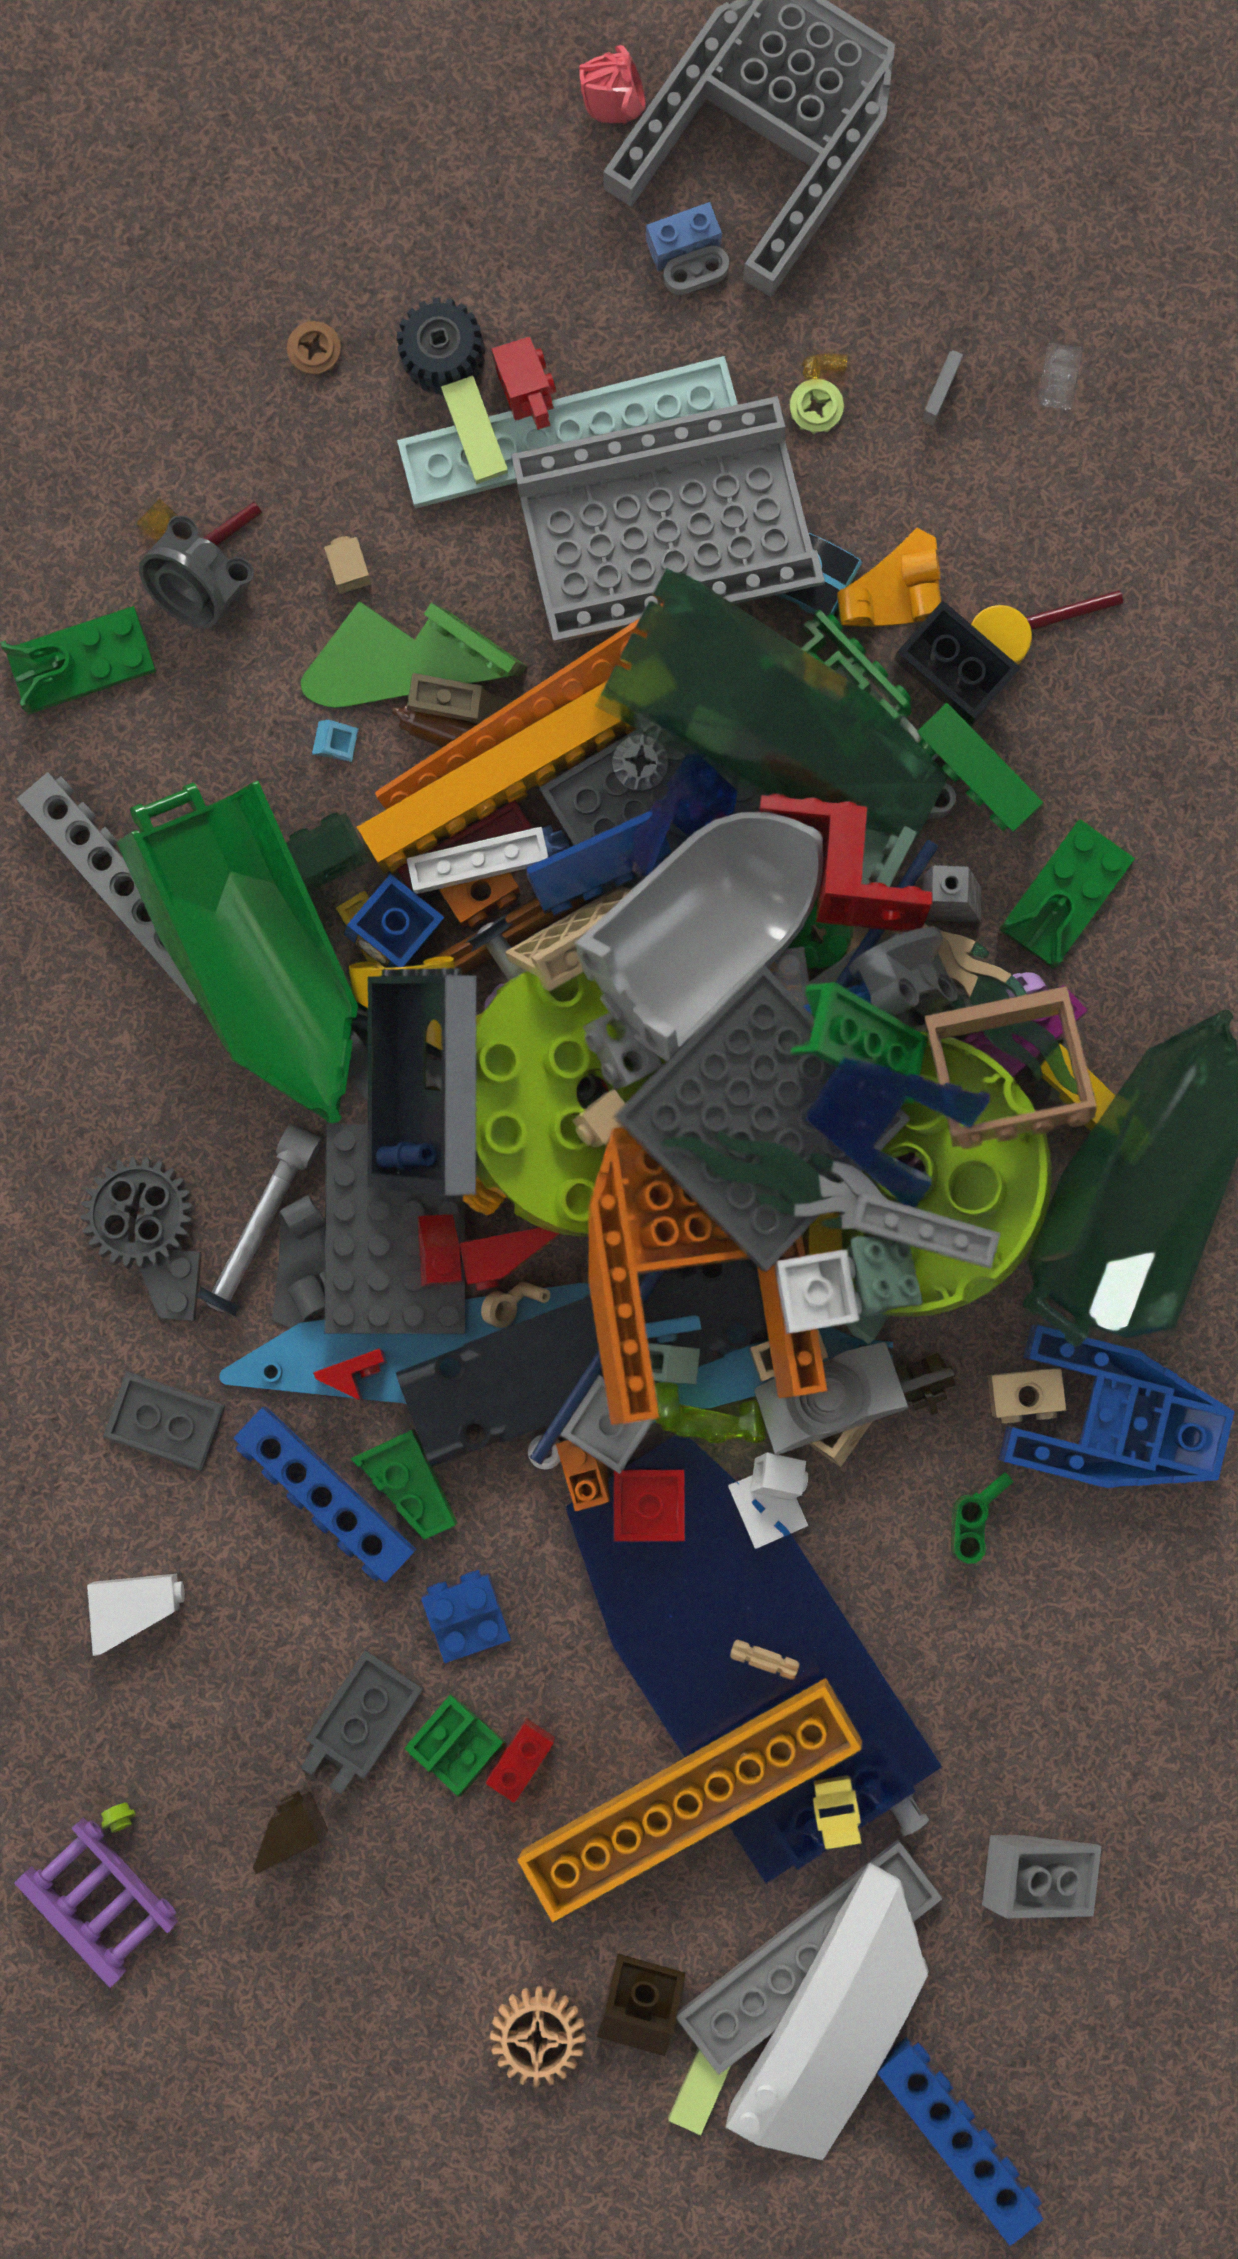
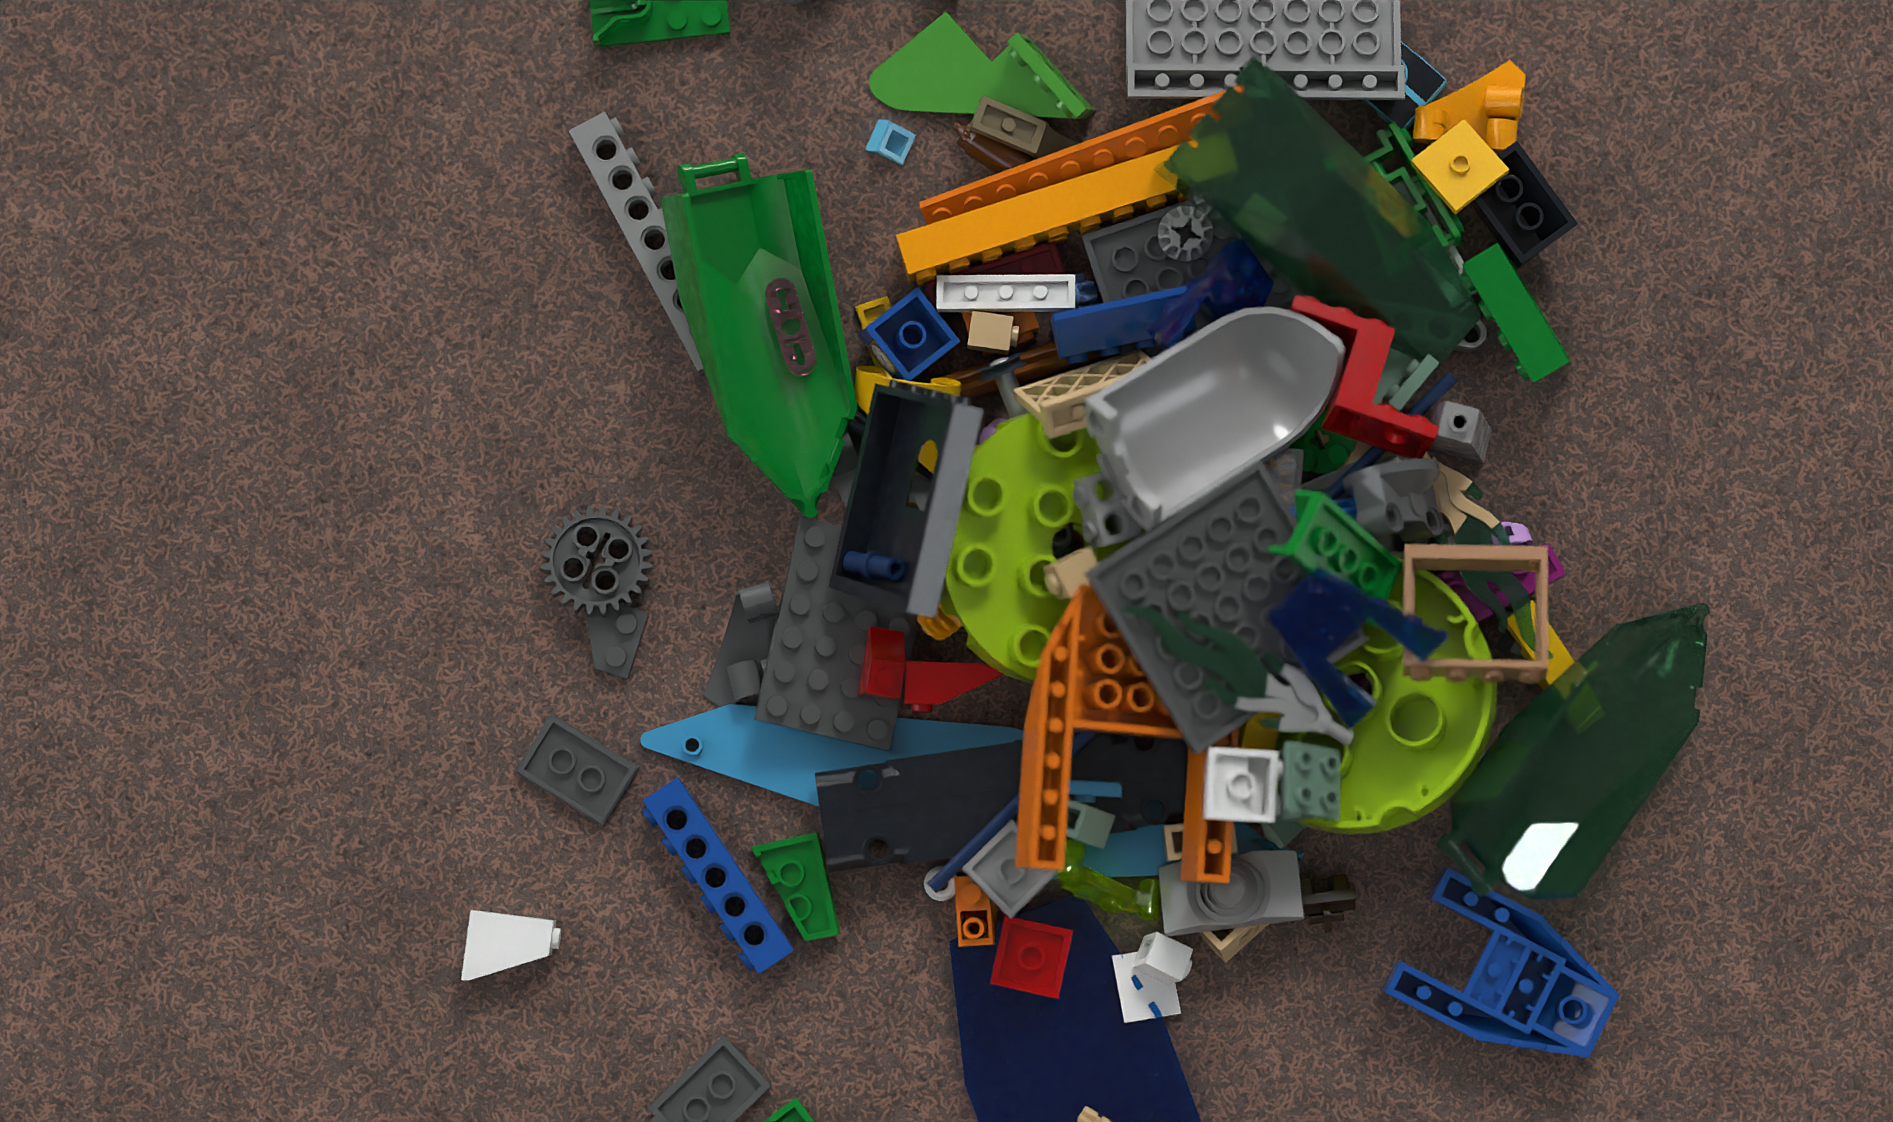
camera: 10 degrees right, 0 degrees up
(262, 937) = (775, 307): none -> clear pink beam
(296, 1152) = (763, 538): piece -> none
(327, 850) = (861, 249): clear green brick -> none
(342, 1375) = (761, 763): red slope -> none
(465, 1616) = (828, 1024): blue plate -> none
(473, 902) = (992, 333): none -> tan brick
(501, 1308) = (930, 733): tan plate -> none
(893, 637) = (1459, 166): none -> yellow plate
(925, 1230) = (1357, 750): light grey tile -> none
(975, 1528) = (1344, 1052): green beam -> none
(1006, 630) = (1572, 182): yellow head -> none
(1048, 1394) = (1443, 929): tan brick -> none
(1066, 894) = (1574, 454): green plate -> none
(1075, 609) = (1643, 176): dark red bar -> none

